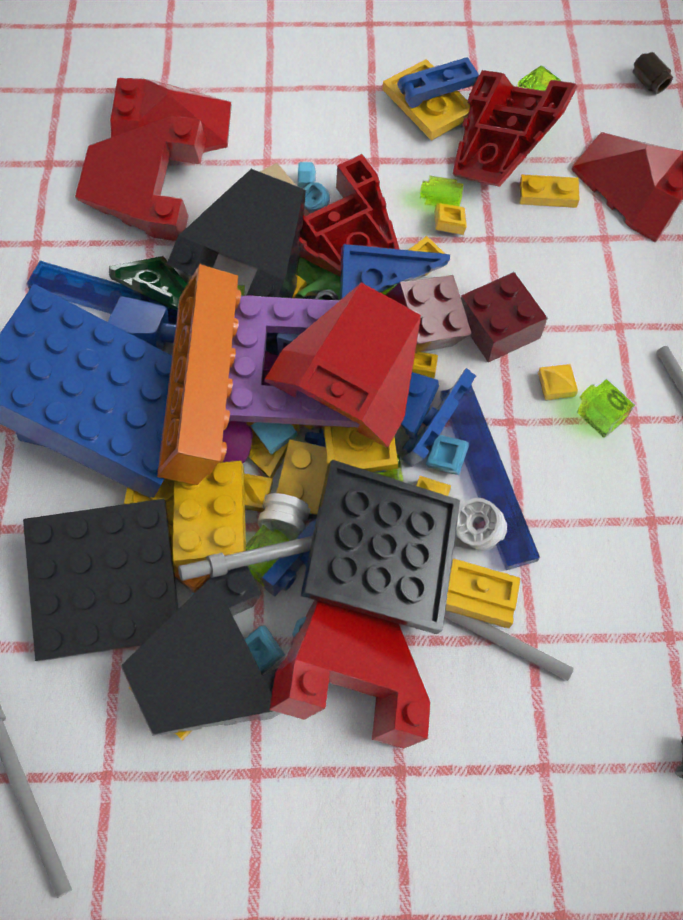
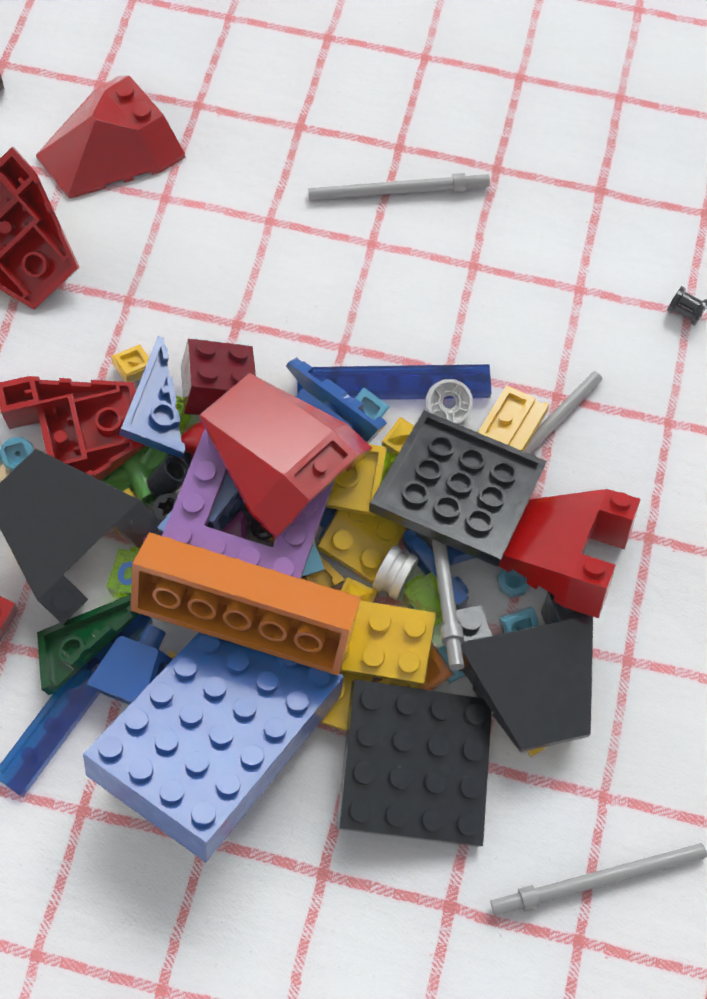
camera: 75 degrees left, 5 degrees up
(441, 191) = (59, 325): clear neon green brick -> none
(450, 218) = (95, 328): yellow tile -> none
(503, 316) = (235, 312): dark red brick -> none
(549, 191) = (92, 226): yellow plate -> none
(557, 382) = (315, 292): yellow tile -> none
(604, 407) = (359, 261): clear neon green brick -> none

